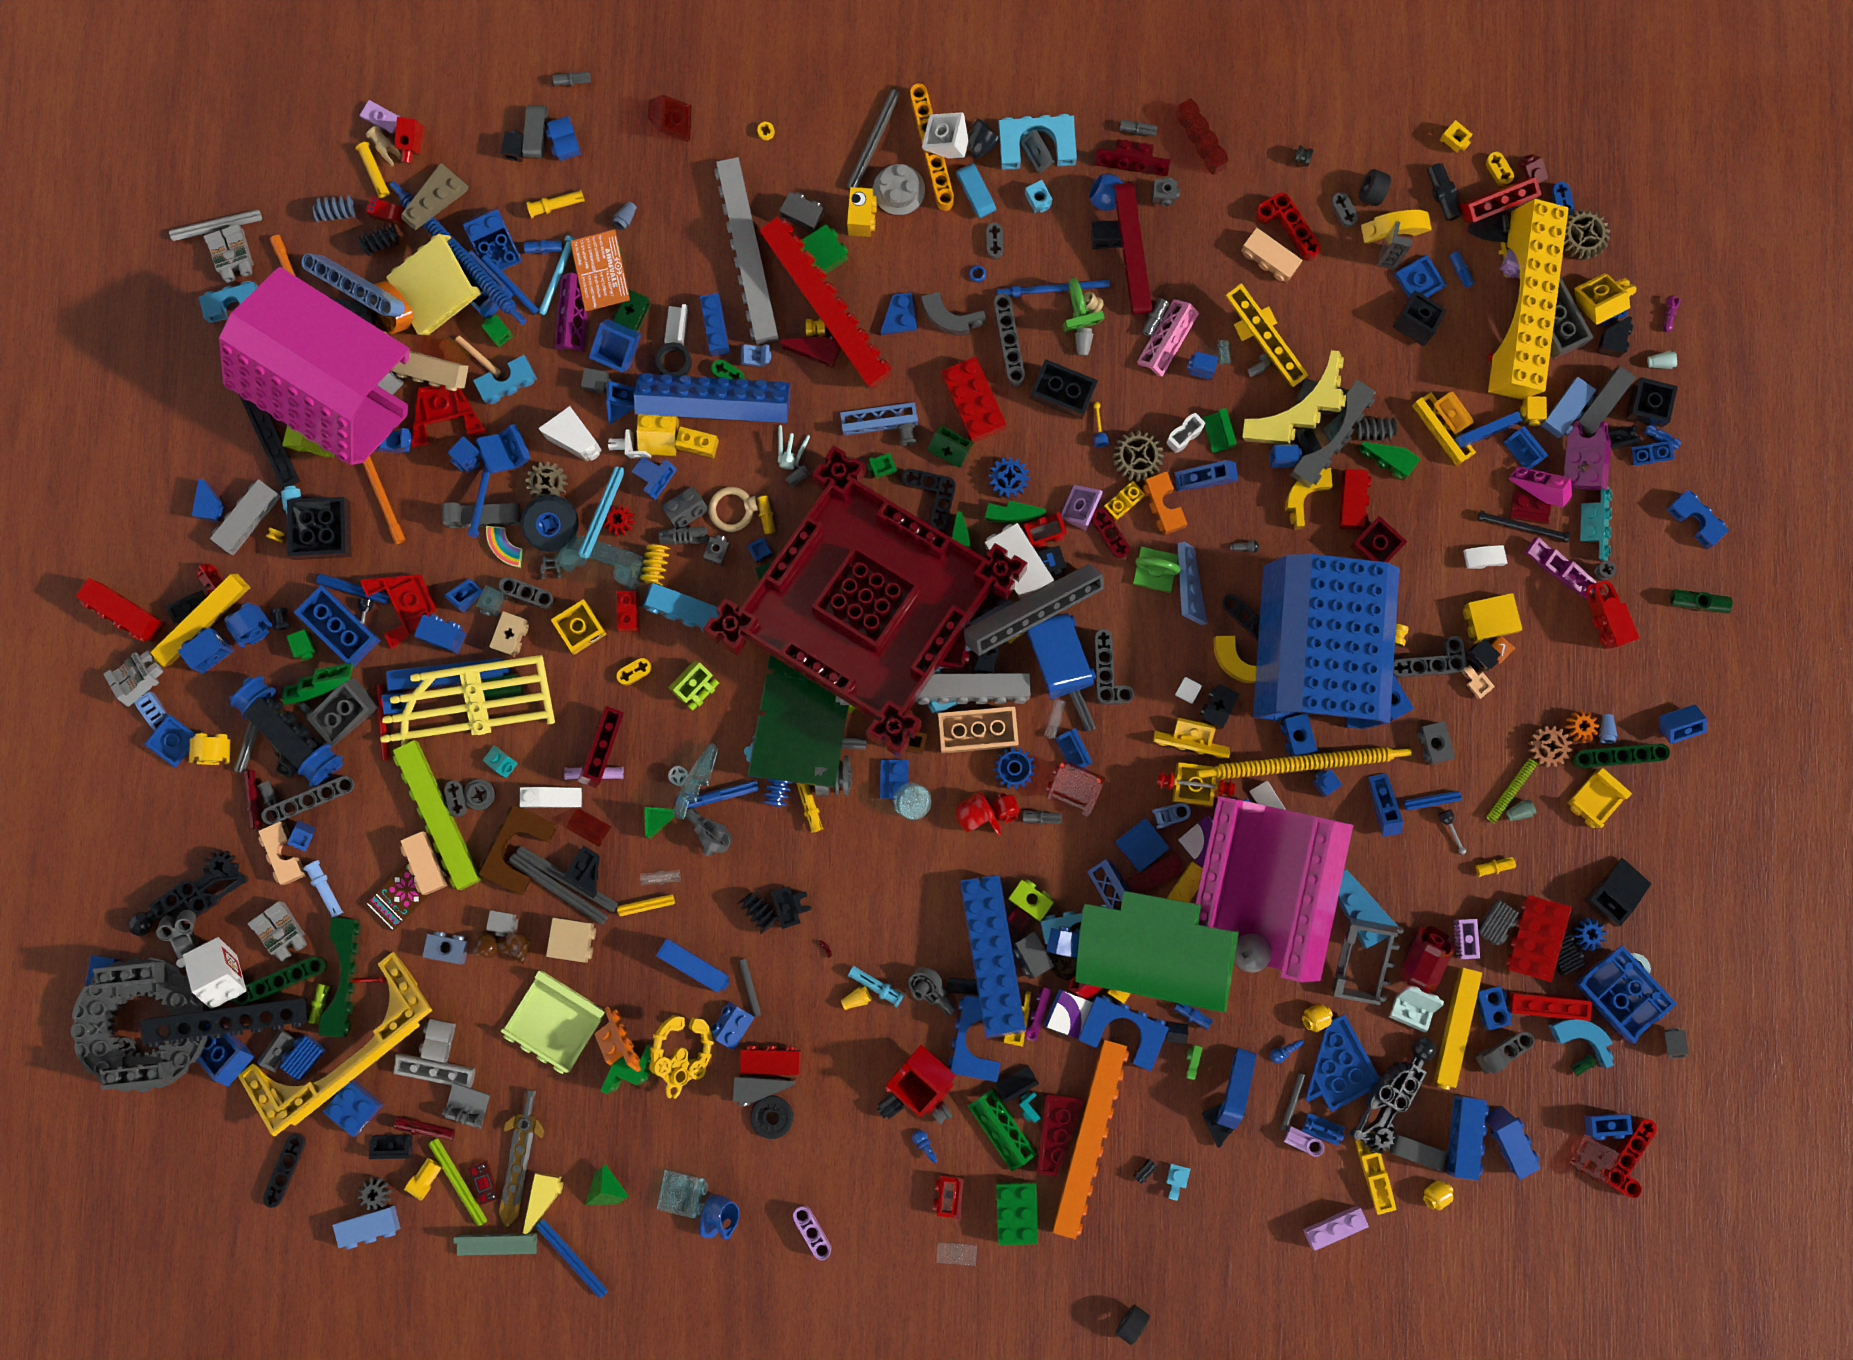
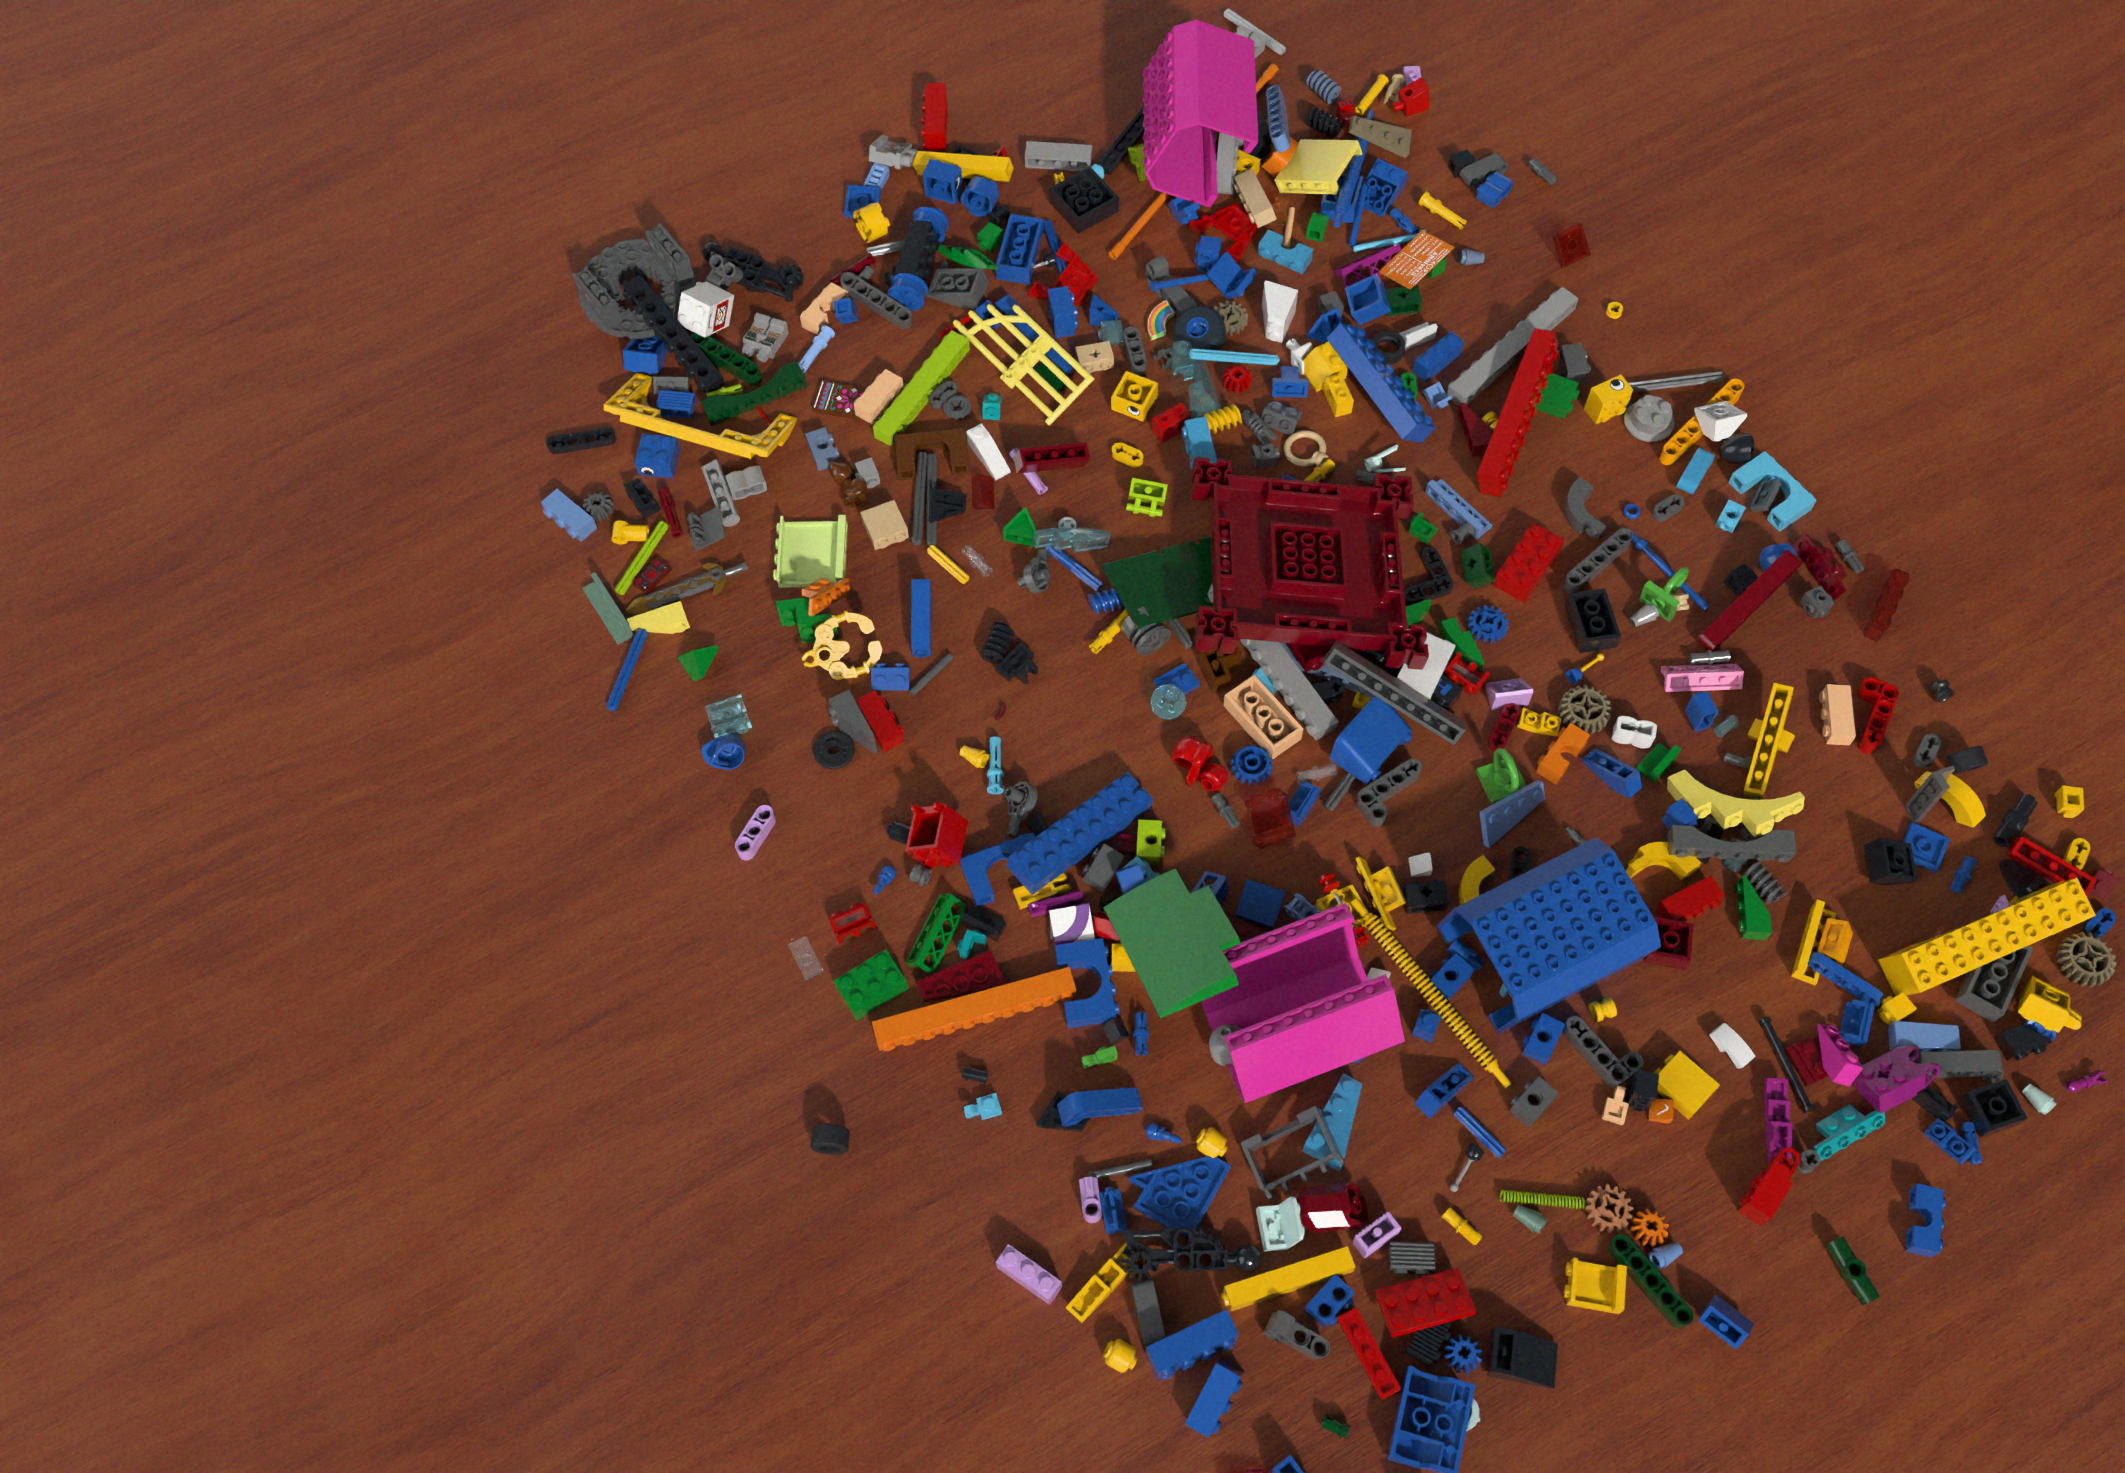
camera: 60 degrees right, 20 degrees down
(207, 503) = (1051, 128): blue slope -> none
(900, 315) = (1551, 477): blue wing -> none
(1570, 1029) = (1367, 1399): dark azure arch -> none

